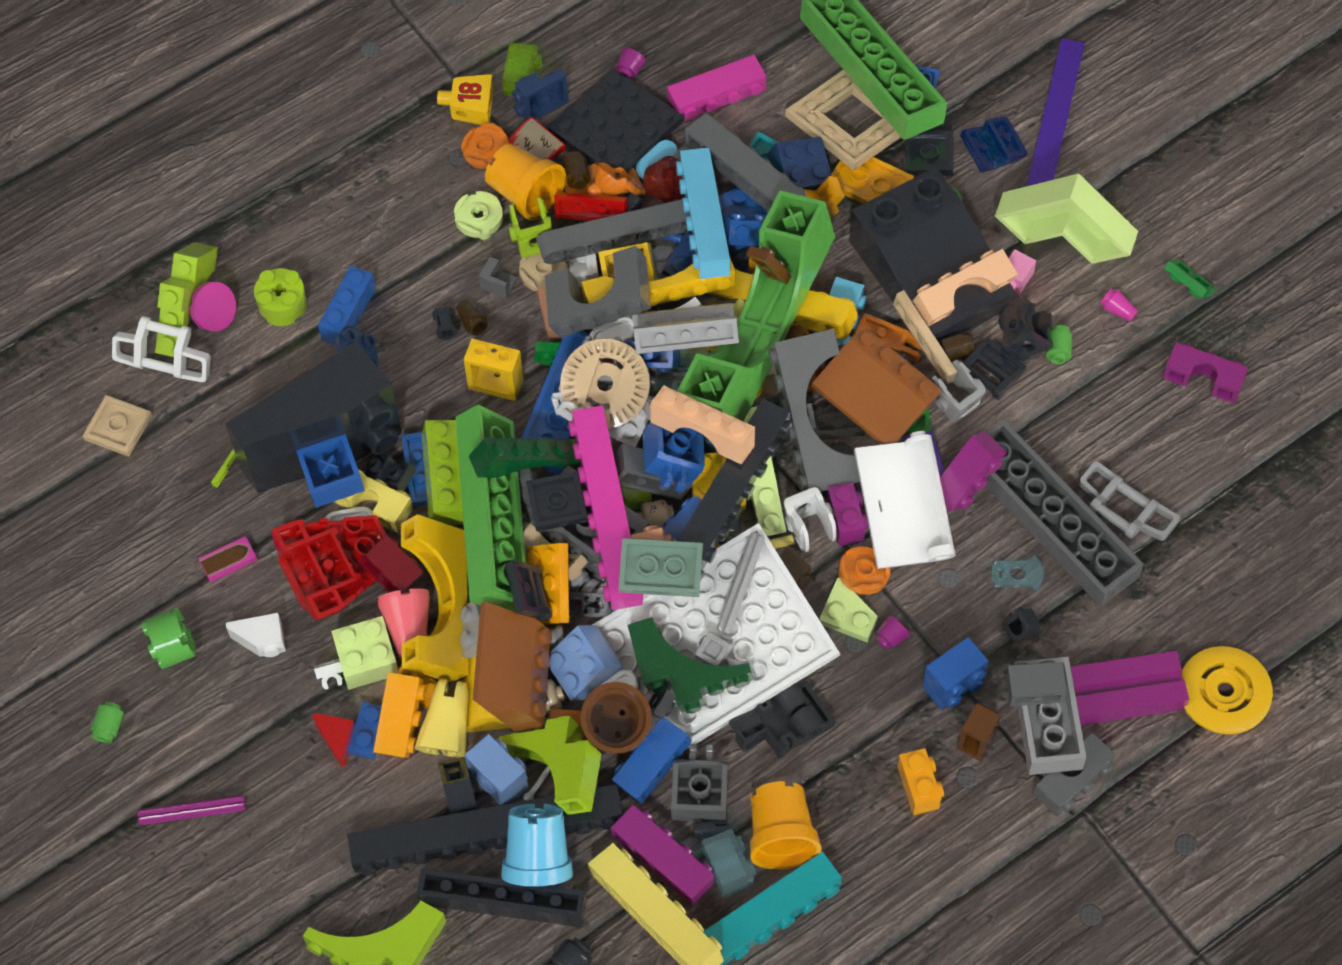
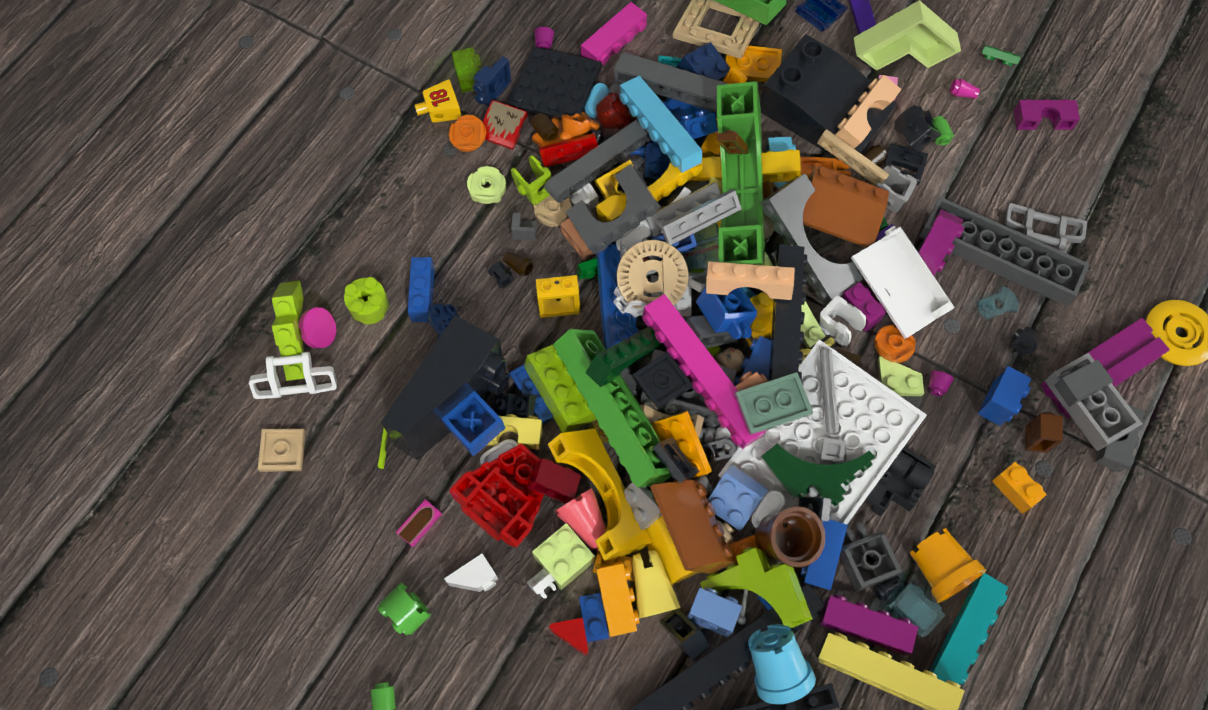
camera: 25 degrees left, 5 degrees up
(524, 178) = (511, 146): light orange piece -> none
(929, 151) = (783, 30): black plate -> none

